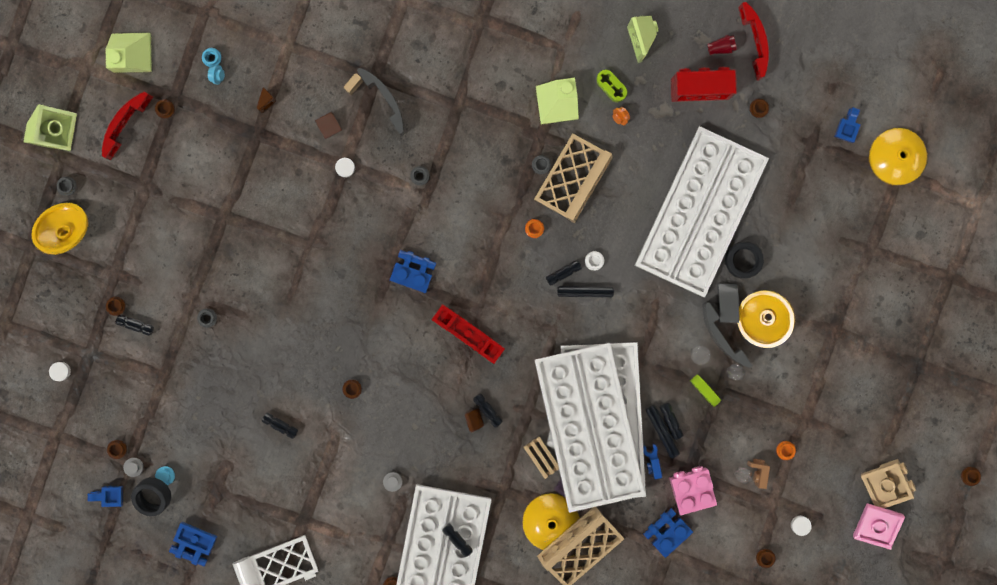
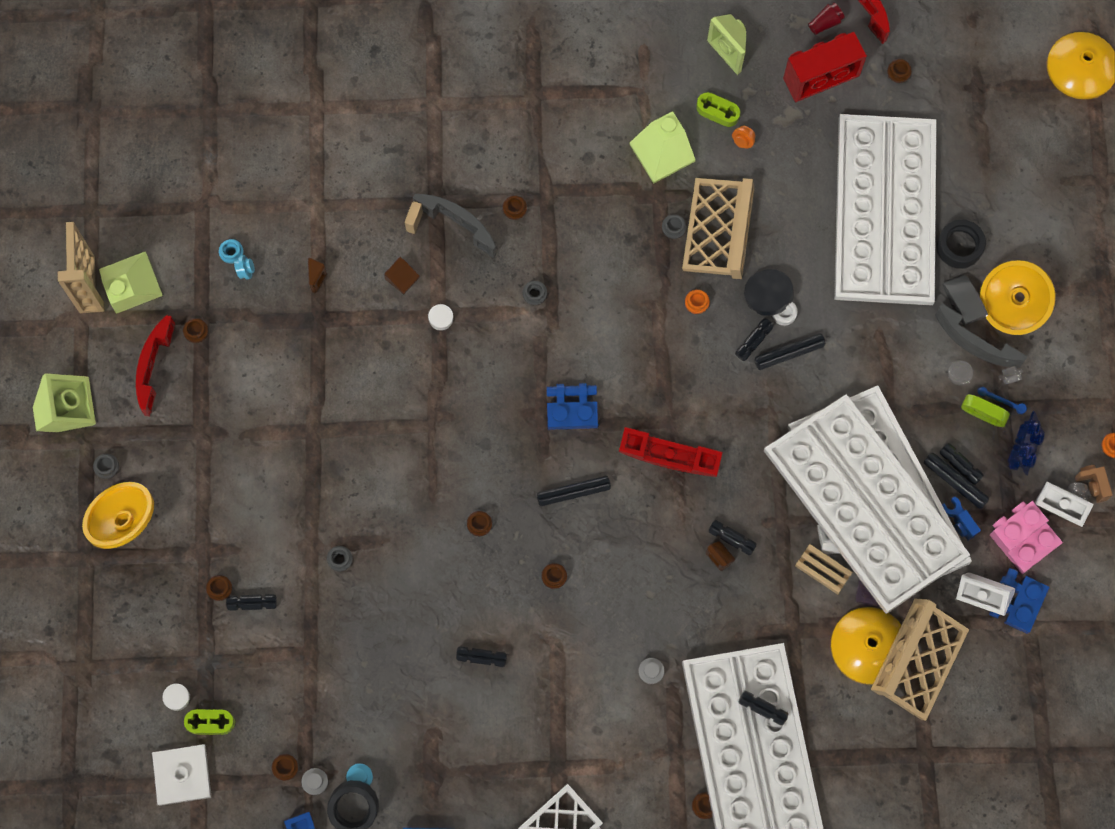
camera: 20 degrees left, 15 degrees down
(45, 426) = (181, 775): none -> white plate
(77, 393) = (209, 728): none -> lime beam
(88, 35) = (80, 274): none -> tan fence
(314, 331) = (479, 523): none -> reddish brown plate
(389, 333) = (573, 491): none -> black axle
(430, 104) = (514, 207): none -> reddish brown plate
(588, 242) = (769, 292): none -> black tile
(646, 519) = (985, 593): none -> white slope
(729, 480) = (1064, 504): none -> white slope
(731, 423) = (1028, 438): none -> clear blue hinge
(732, 397) = (1020, 409): none -> blue hinge
(847, 128) = (1010, 54): blue plate -> none

